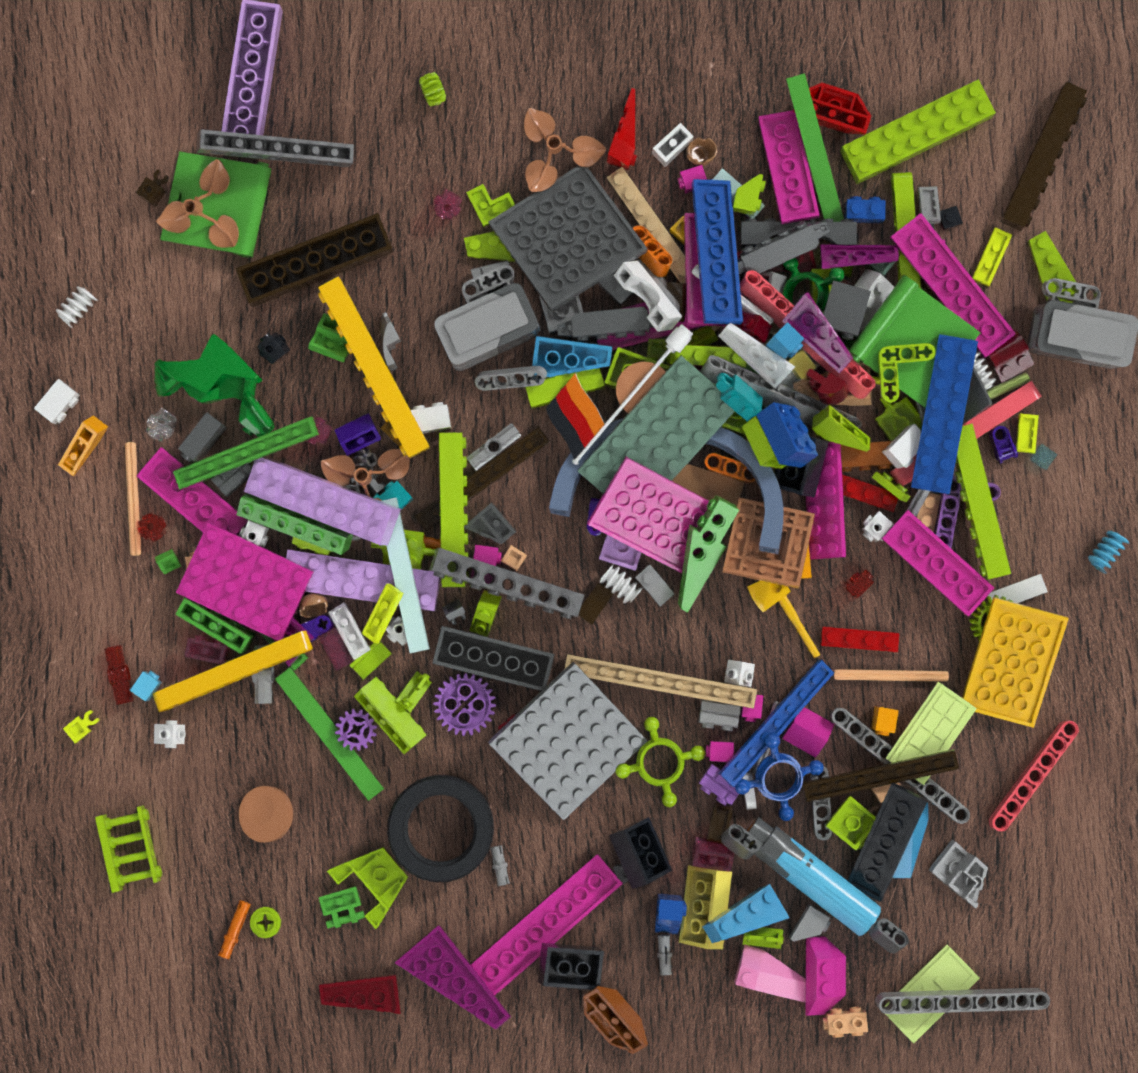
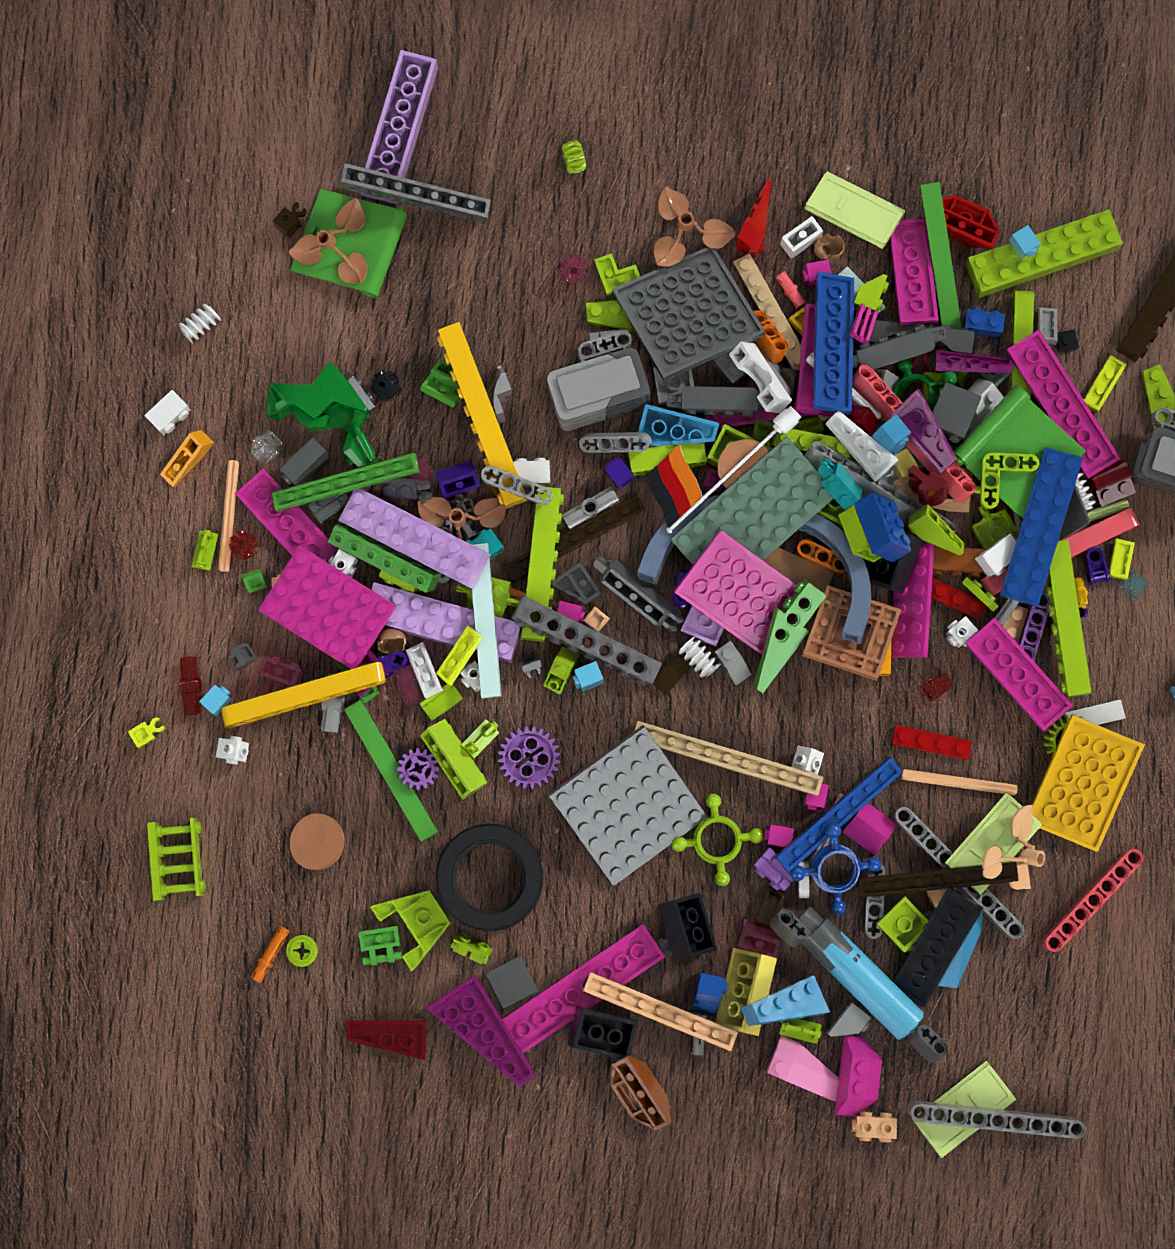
camera: 10 degrees right, 5 degrees down
(114, 536) = (204, 550): none -> lime hinge
(167, 637) = (243, 654): none -> dark grey tile
(216, 625) = (293, 647): bright green brick -> none
(254, 362) = (356, 383): none -> wing
(309, 451) = (406, 489): none -> dark grey hinge
(314, 260) = (437, 306): dark brown brick -> none
(417, 438) = (517, 483): none -> light grey beam
(423, 895) = (463, 943): none -> lime hinge
(475, 926) = (512, 982): none -> dark grey tile
(493, 658) = (563, 715): dark grey brick -> none
(499, 865) = (544, 923): light grey pin -> none
(512, 618) = (588, 677): none -> medium azure brick
(518, 408) = (619, 473): none -> dark purple brick
(552, 528) = (637, 593): none -> dark grey hinge
(612, 403) = (711, 479): none -> dark pink tile
(624, 938) = (660, 1011): none -> light nougat plate
(668, 199) = (790, 290): none -> coral pin
(720, 714) = (783, 799): light grey brick -> none
(722, 109) = (854, 209): none -> yellowish green piece
(747, 214) = (873, 315): none -> dark pink tile
(767, 594) = (846, 684): yellow piece -> none
(884, 720) = (947, 825): light orange brick -> none
(897, 125) = (1025, 242): none -> medium azure brick
(955, 716) = (1021, 828): none -> light nougat plant
(960, 872) = (1008, 989): light grey slope -> none
(991, 472) = (1081, 592): none -> yellow axle

